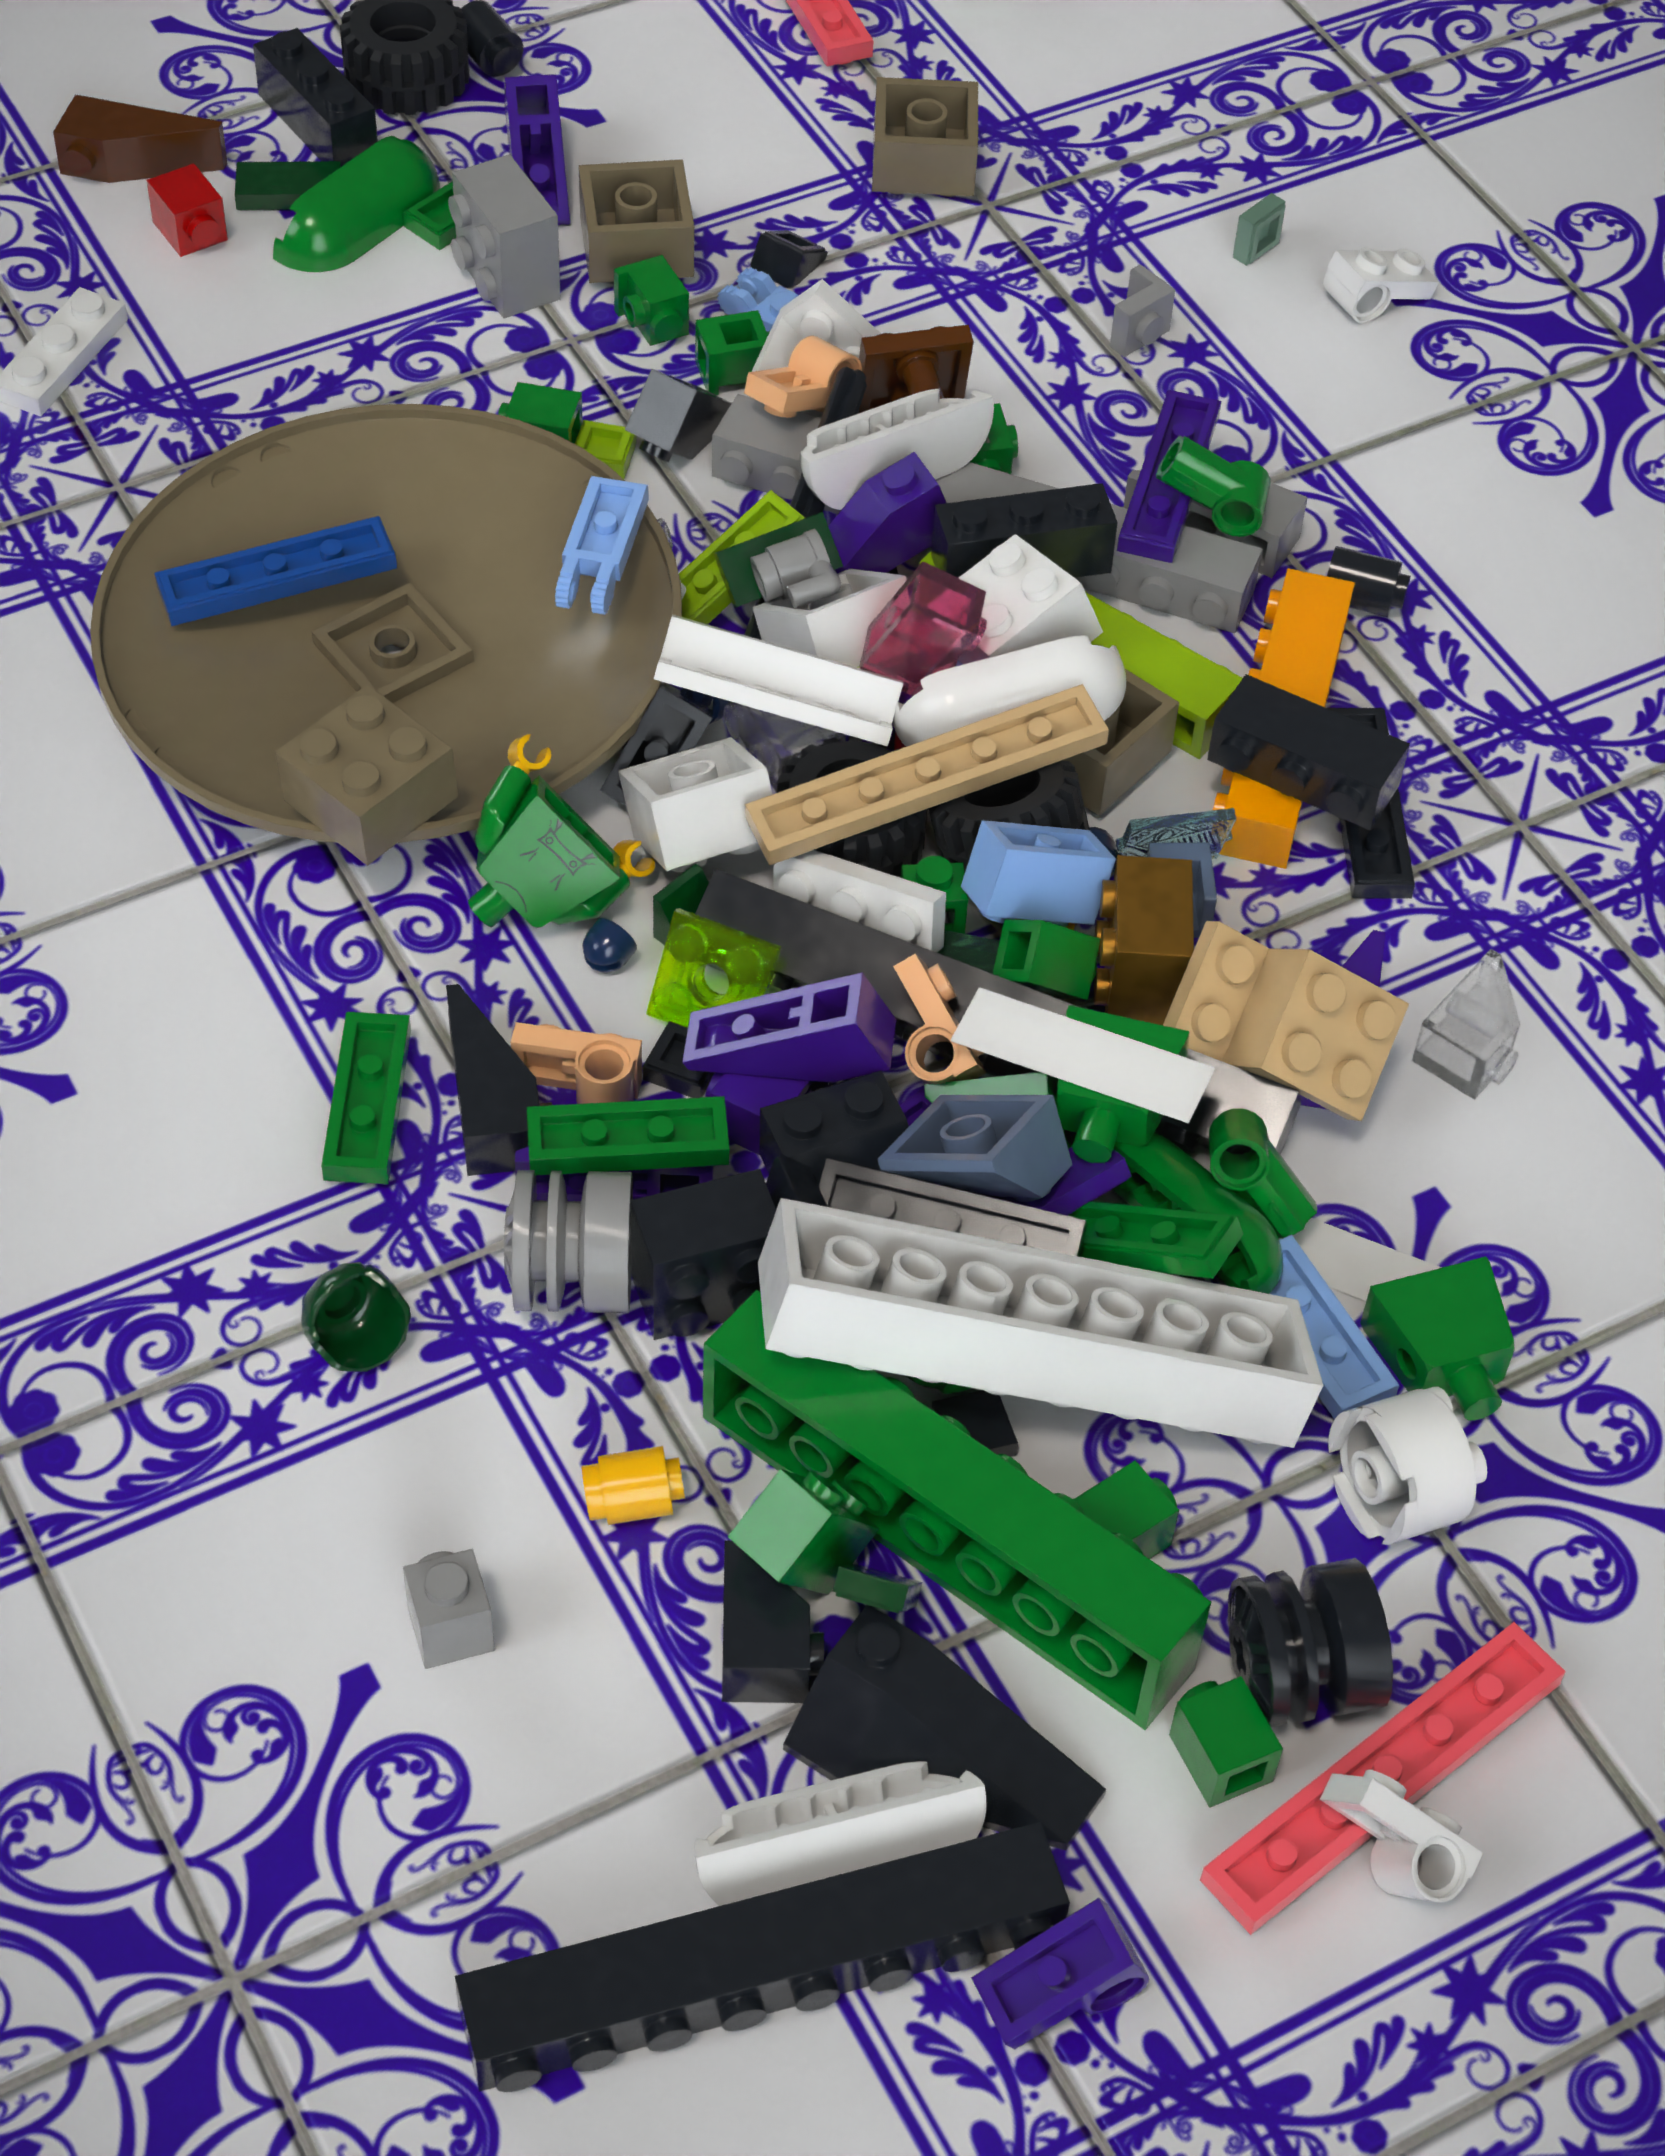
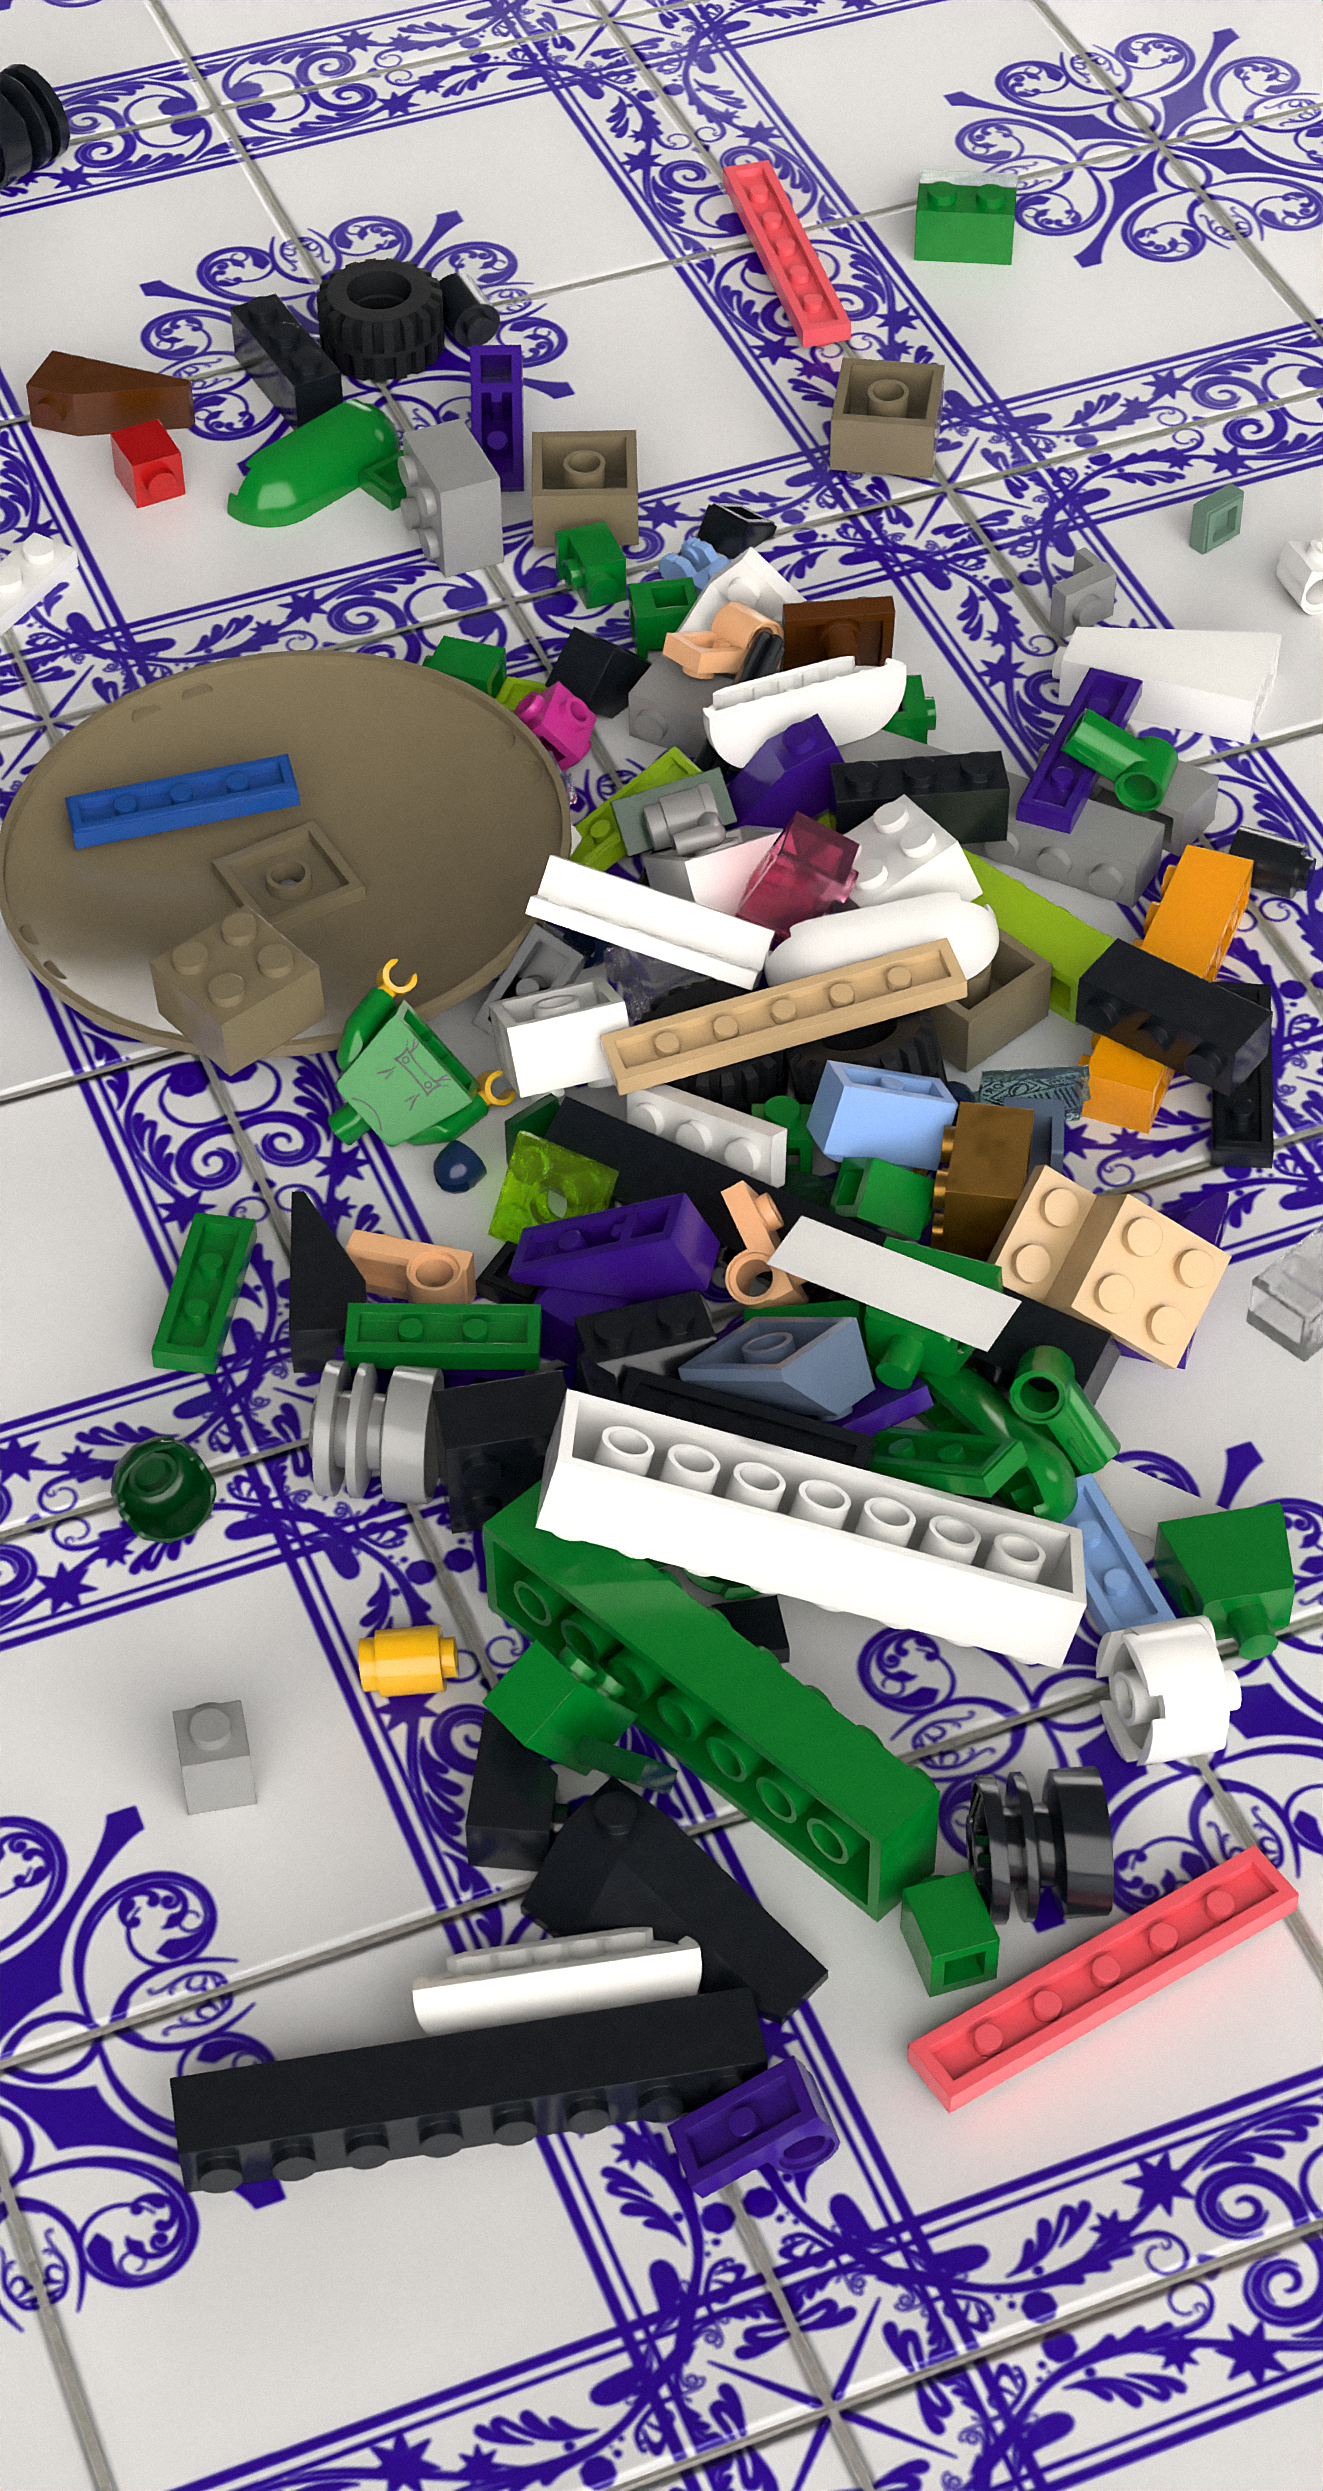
camera: 10 degrees right, 5 degrees down
(277, 183) = (237, 441): dark green tile -> none
(601, 540) = (496, 784): light blue hinge -> none
(646, 461) = (559, 723): none -> dark pink brick
(1135, 1507) = (894, 1712): green brick -> none
(1267, 393) = (1190, 677): none -> white slope
(1402, 1835) = (1083, 1997): white plate -> none

